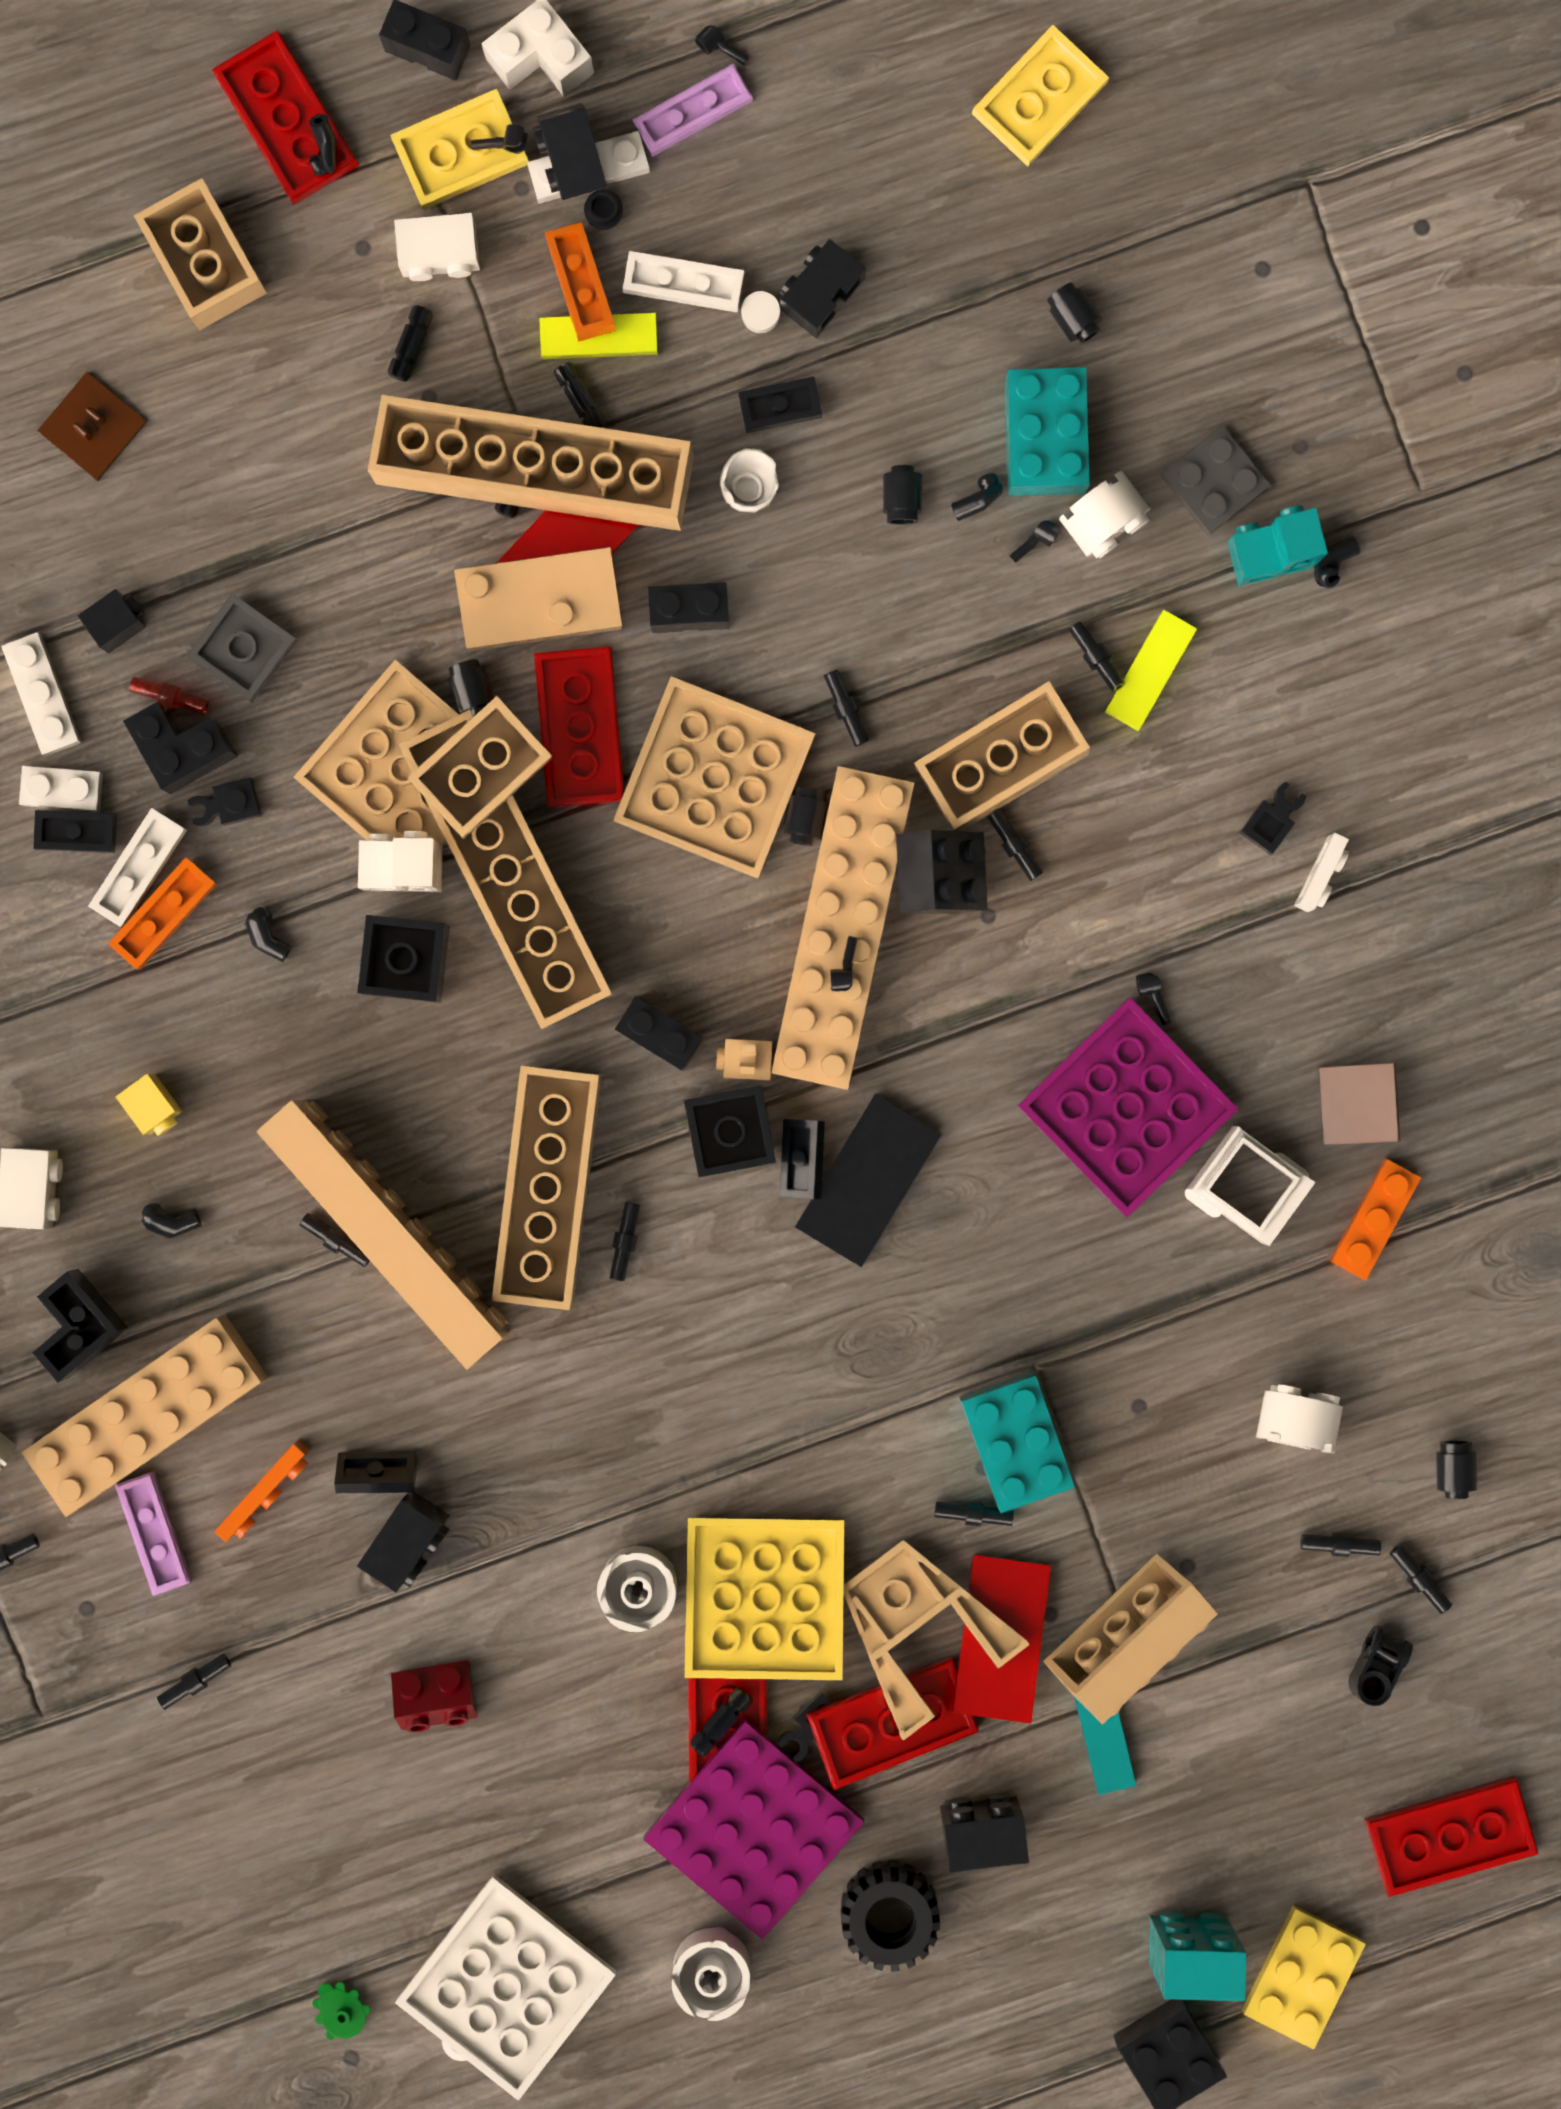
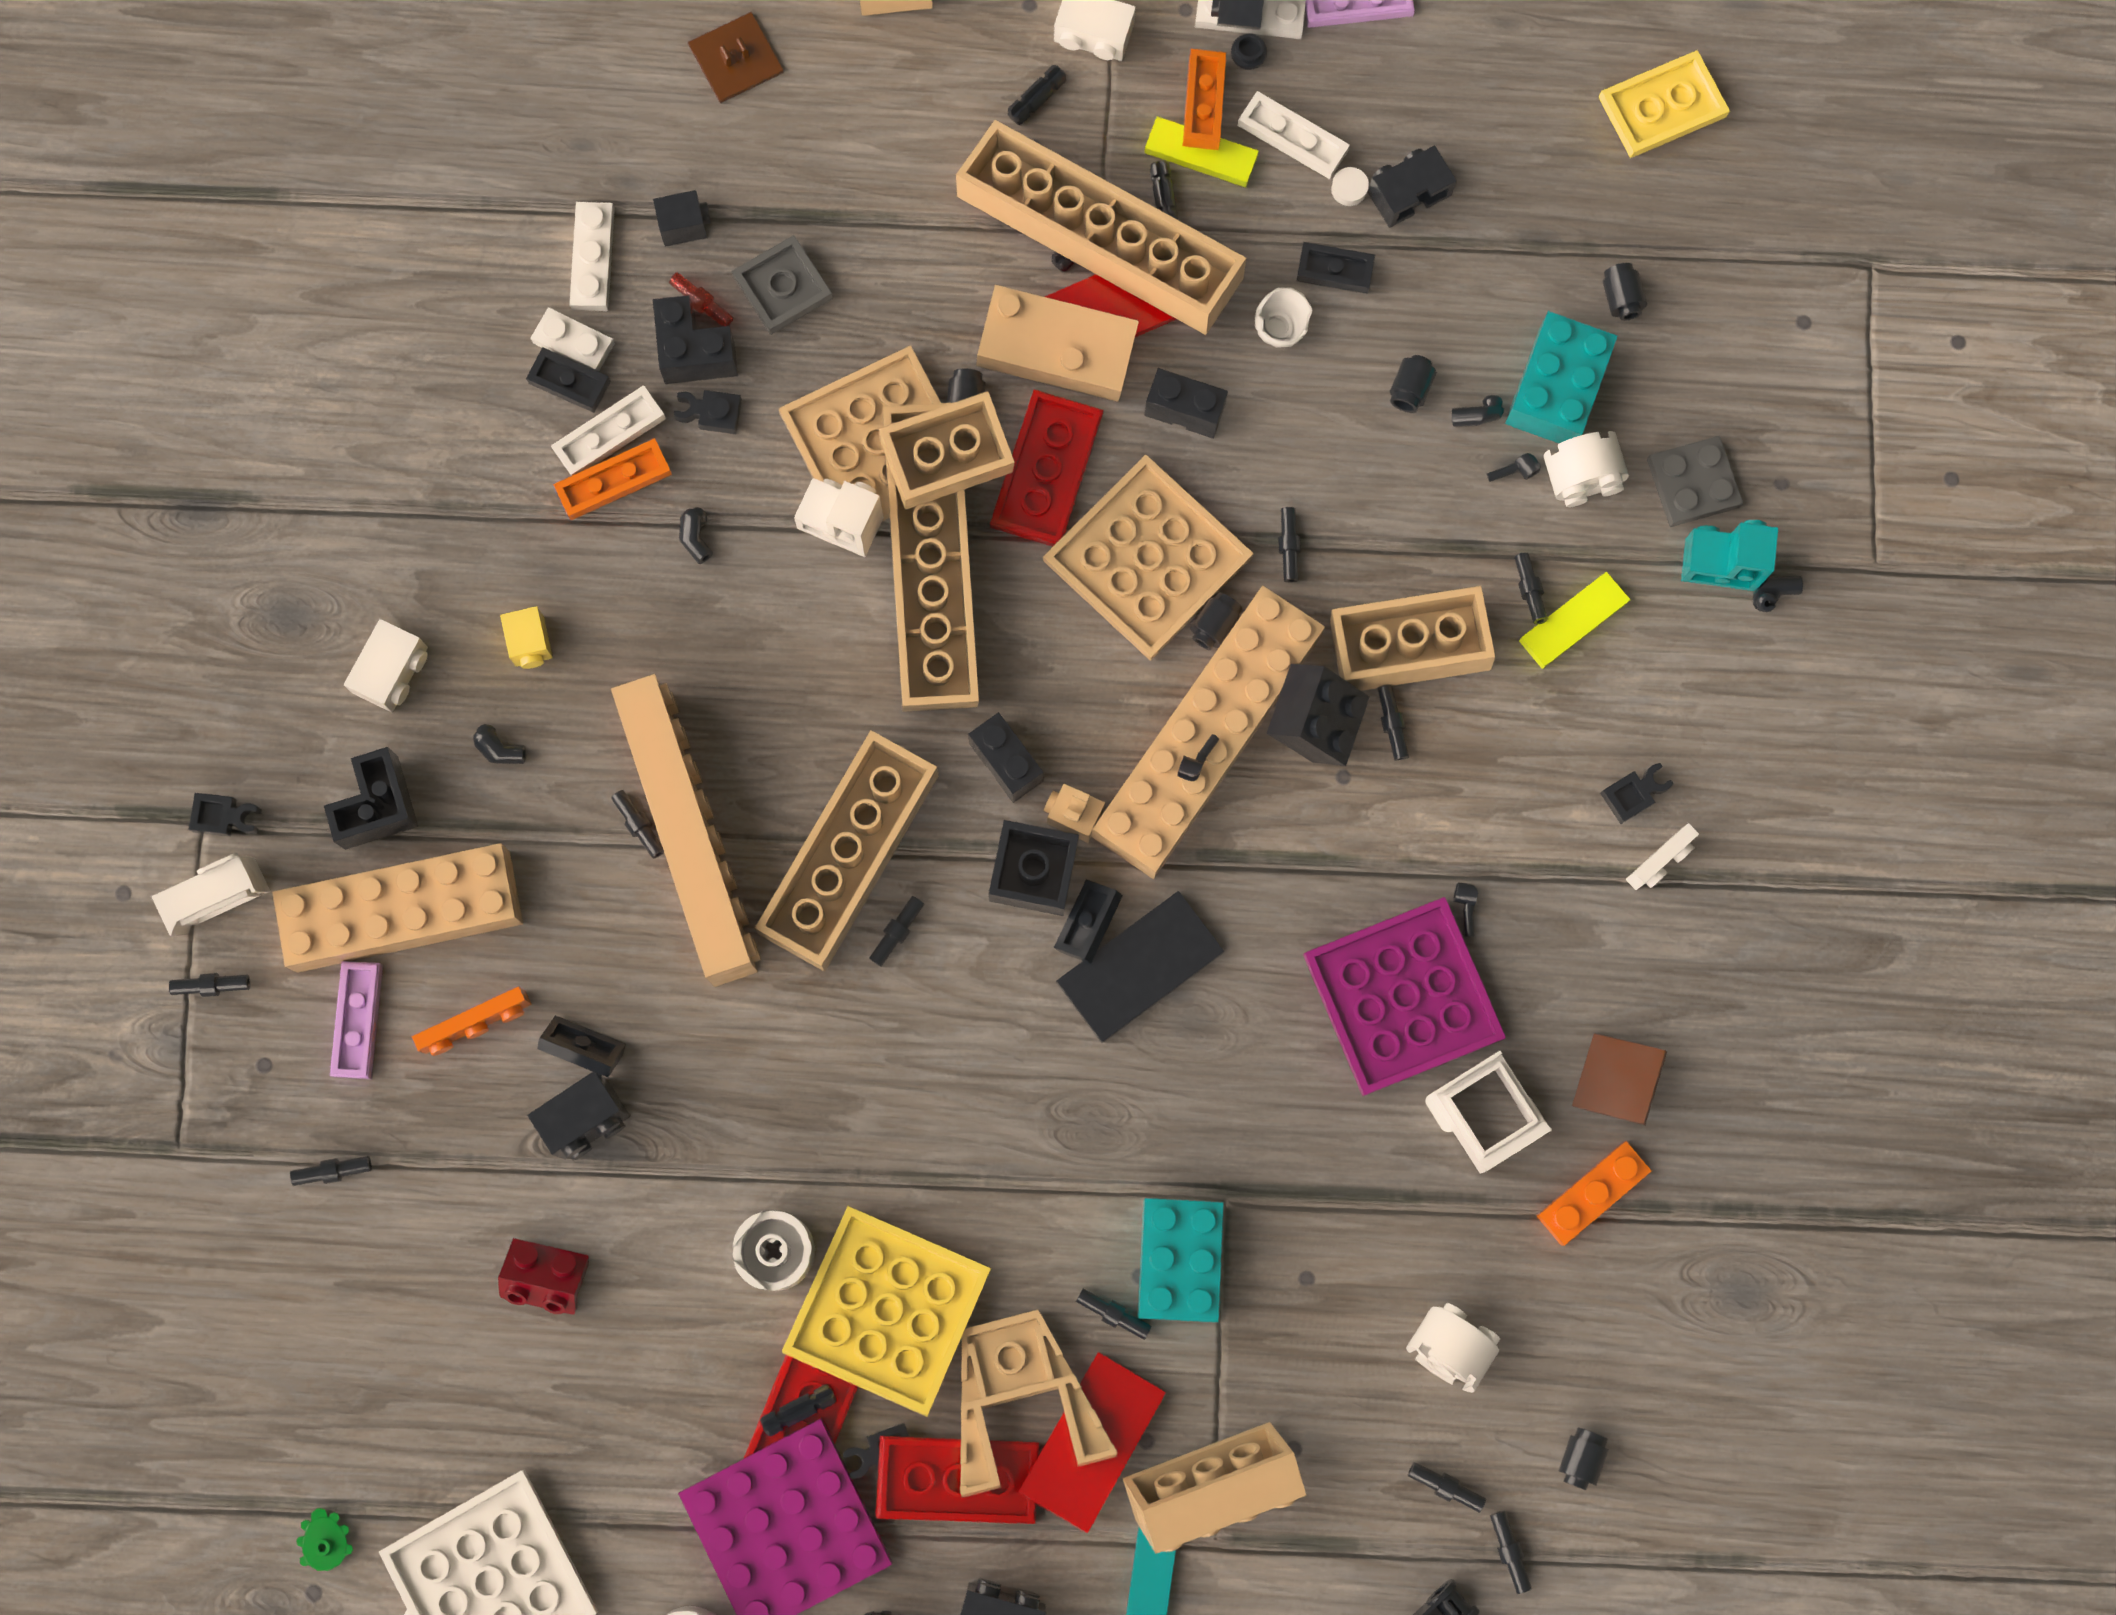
camera: 20 degrees right, 10 degrees down
(403, 959) = (806, 600): black brick -> none

